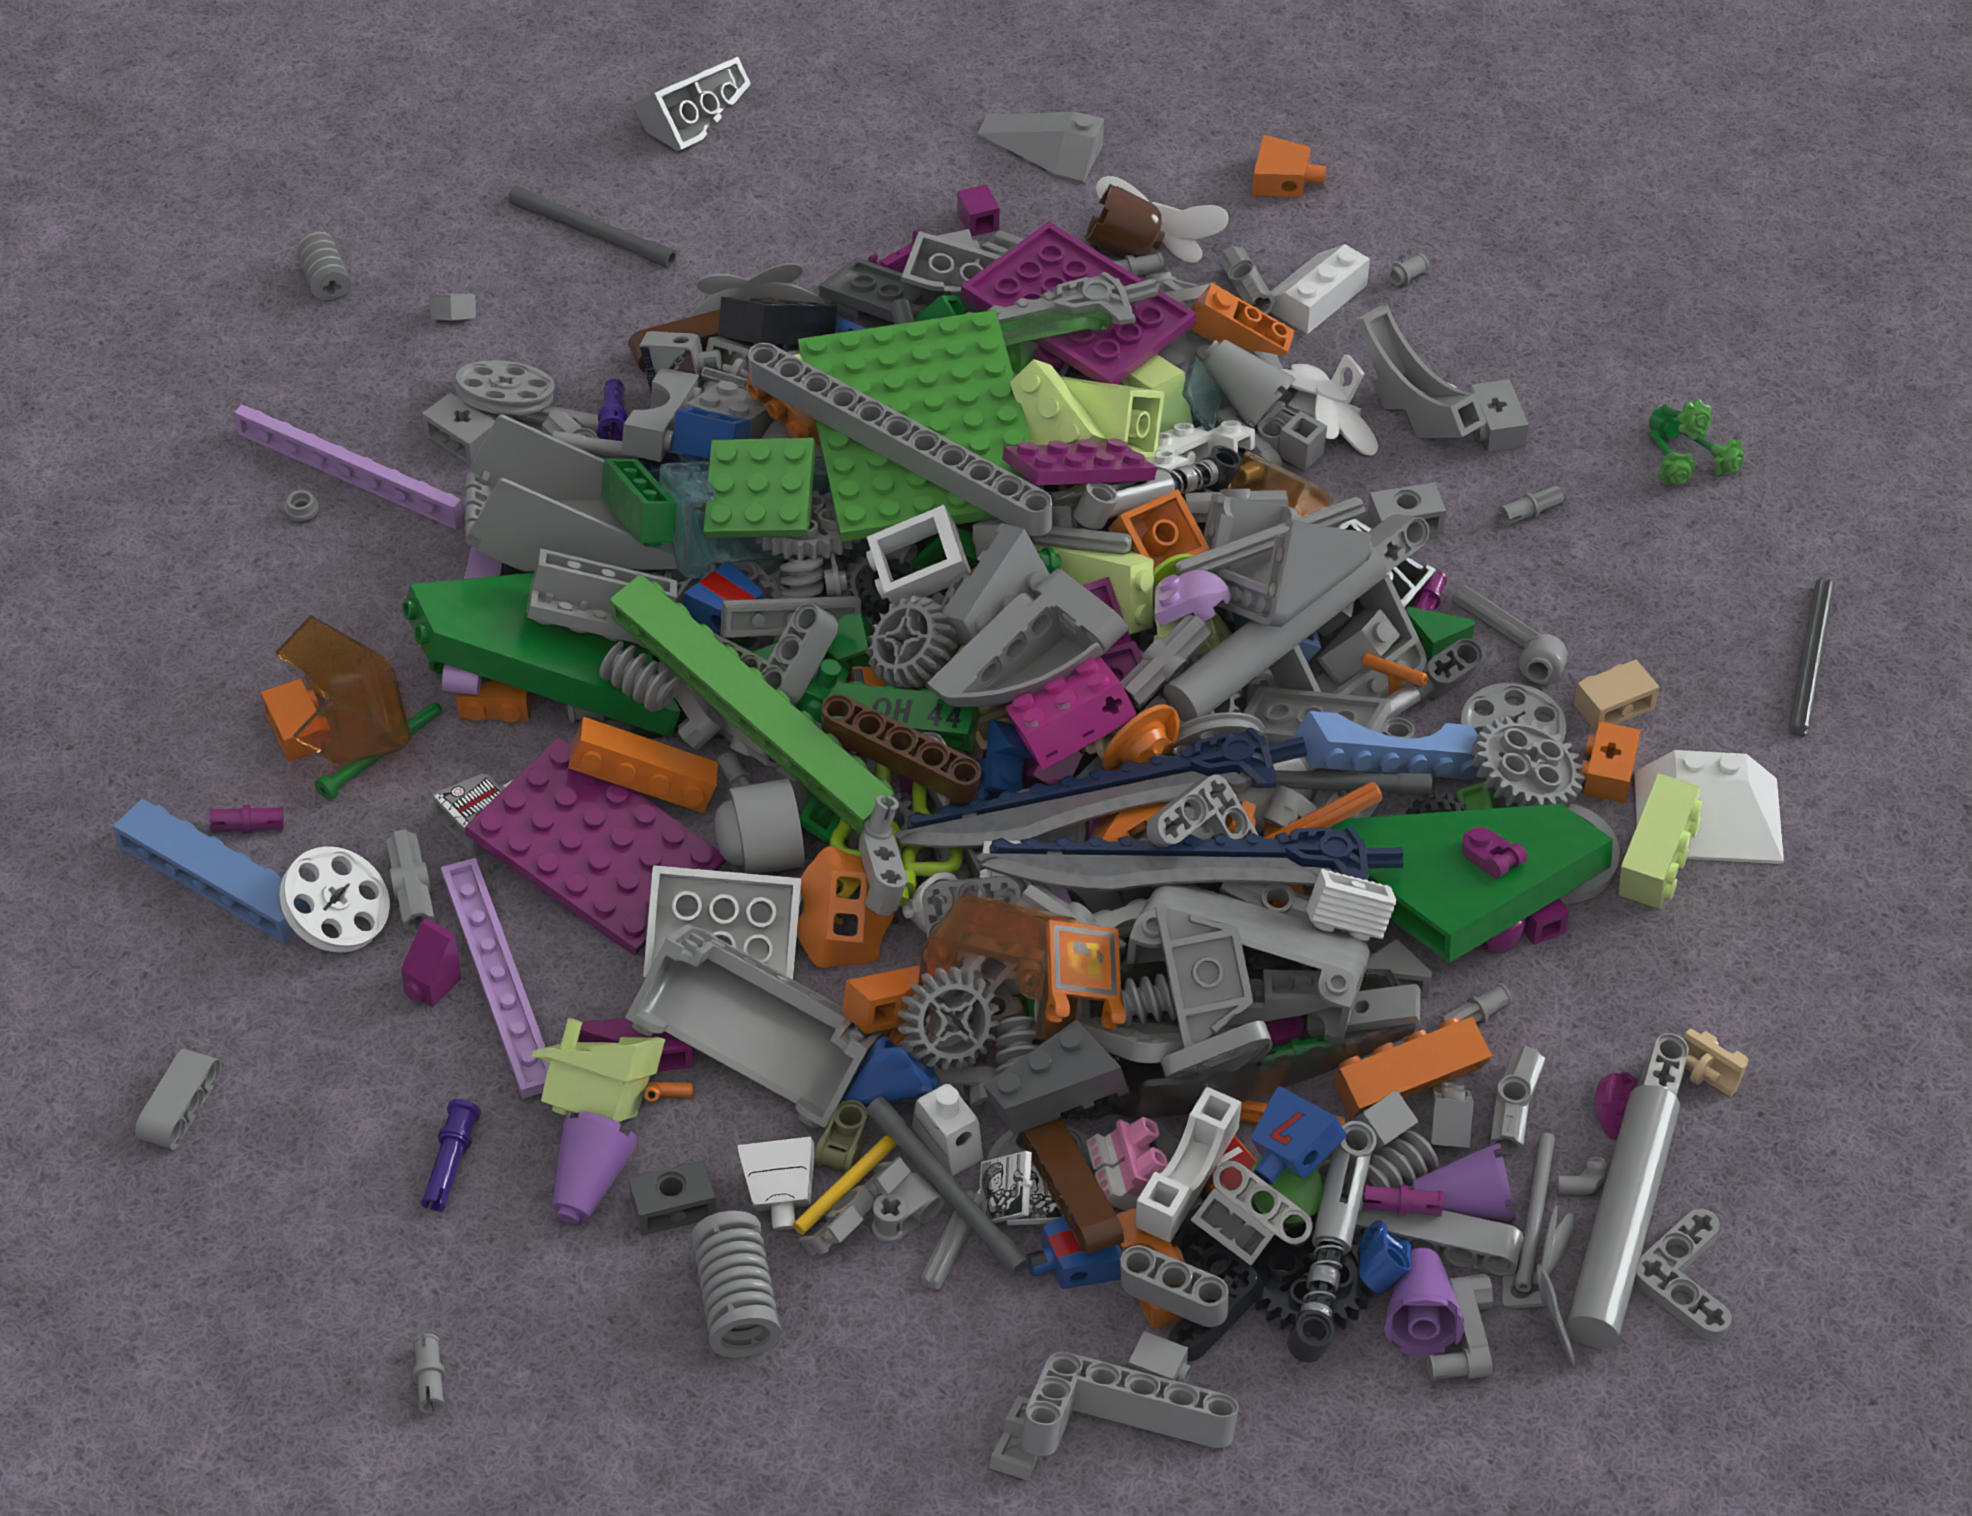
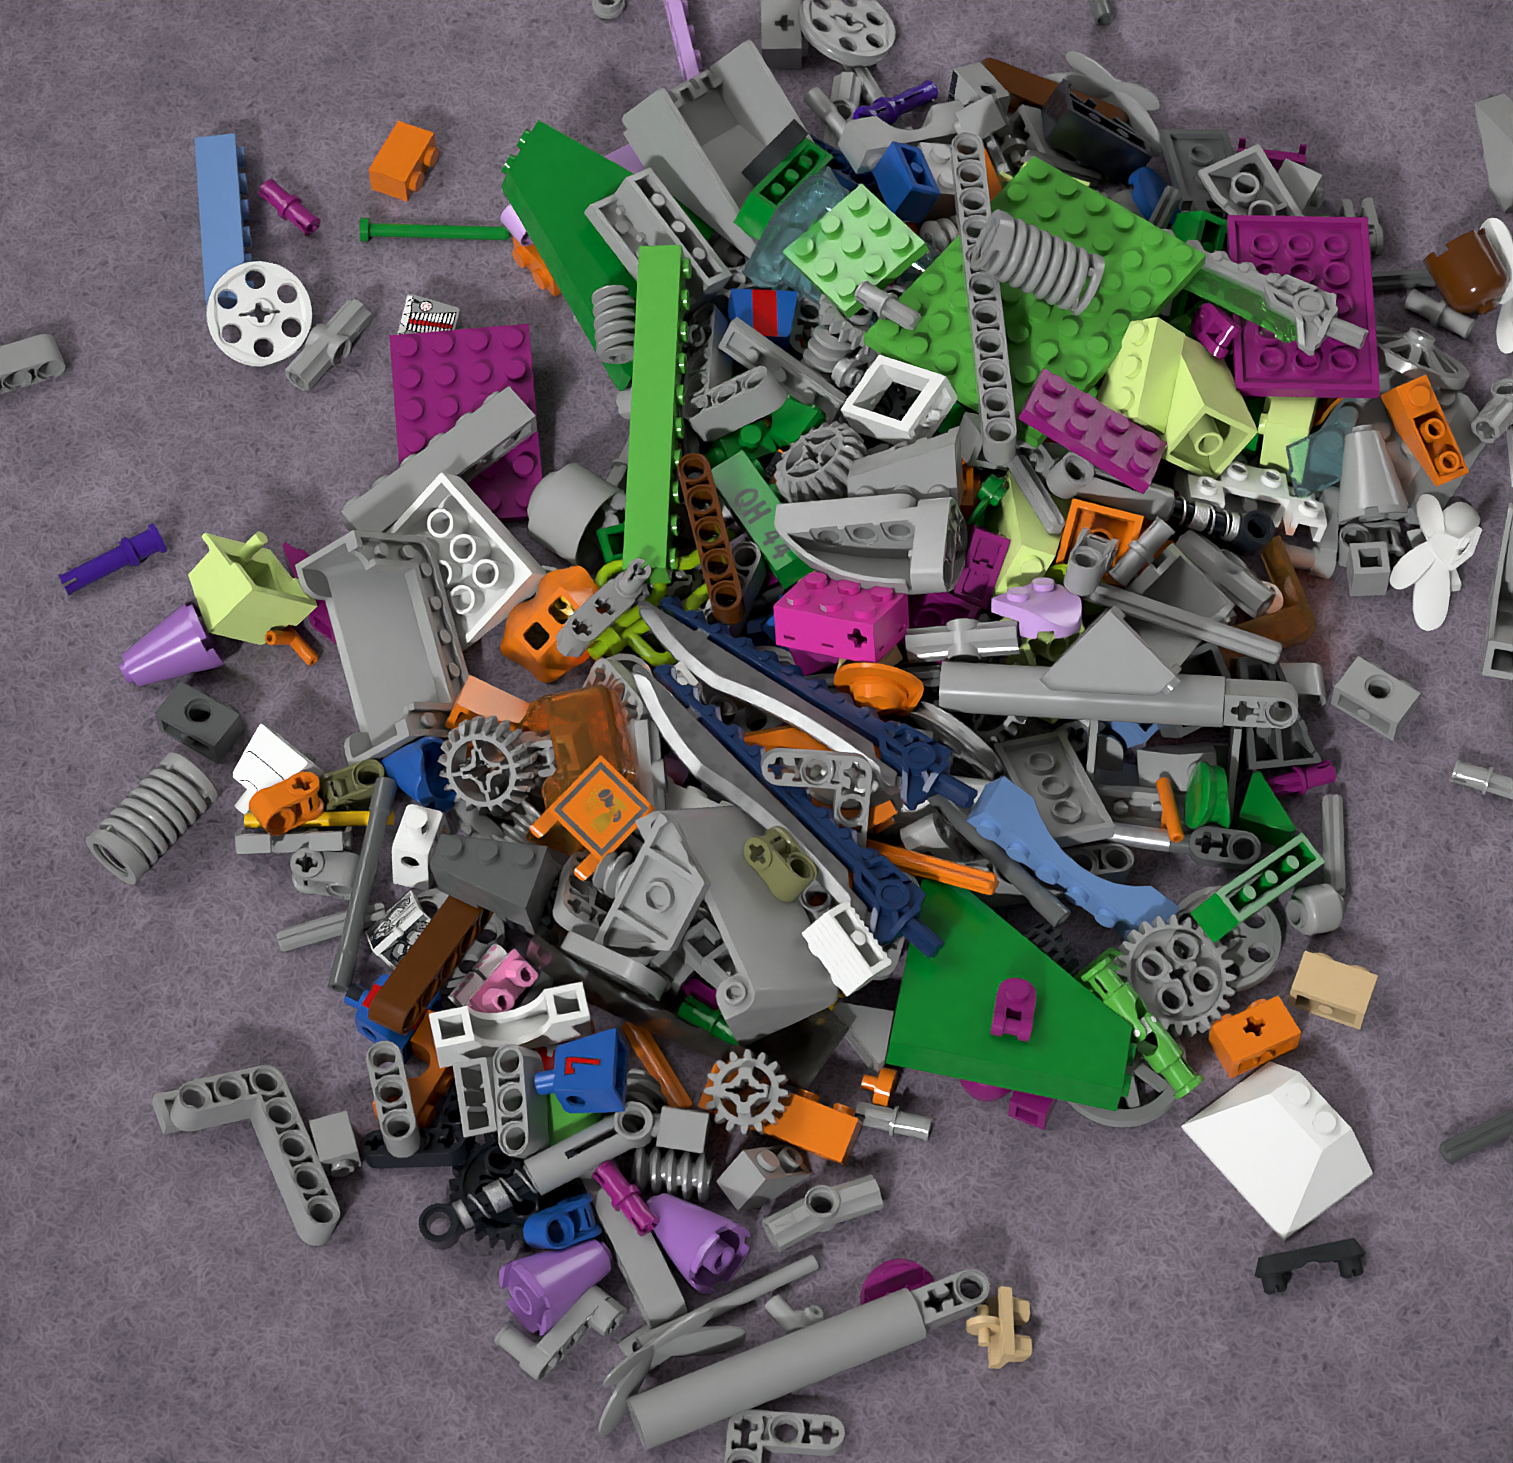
camera: 50 degrees right, 10 degrees up
(362, 694) = (458, 193): clear orange windscreen -> none
(431, 964) = (256, 417): magenta slope -> none
(497, 974) = (307, 449): lavender plate -> none
(608, 486) = (774, 152): none -> black tyre
(627, 882) = (463, 451): none -> light grey brick
(643, 765) = (557, 395): orange brick -> none
(705, 359) = (982, 117): none -> light grey brick
(826, 1179) = (286, 805): none -> orange piece
(840, 496) = (886, 305): none -> light grey axle
(922, 380) = (1041, 269): none -> light grey piece
(978, 210) = (1381, 167): magenta brick -> none
(1042, 352) = (1214, 329): none -> magenta plate
(1181, 543) = (1089, 562): none -> light grey piece
(1203, 512) = (1141, 551): none -> light grey pin
(1247, 891) = (783, 863): none -> olive piece
(1379, 1009) = (799, 1051): light grey tile -> none
(1382, 1050) = (747, 1075): none -> light grey gear
(1412, 637) = (1207, 797): none -> green piece
(1444, 993) = (882, 1086): none -> orange tile
(1509, 668) = (1257, 887): none -> green brick
(1532, 793) = (1125, 1001): none -> bright green piece
(1661, 841) = (1180, 1128): yellowish green brick -> none
(1804, 876) = (1273, 1266): none -> black piece

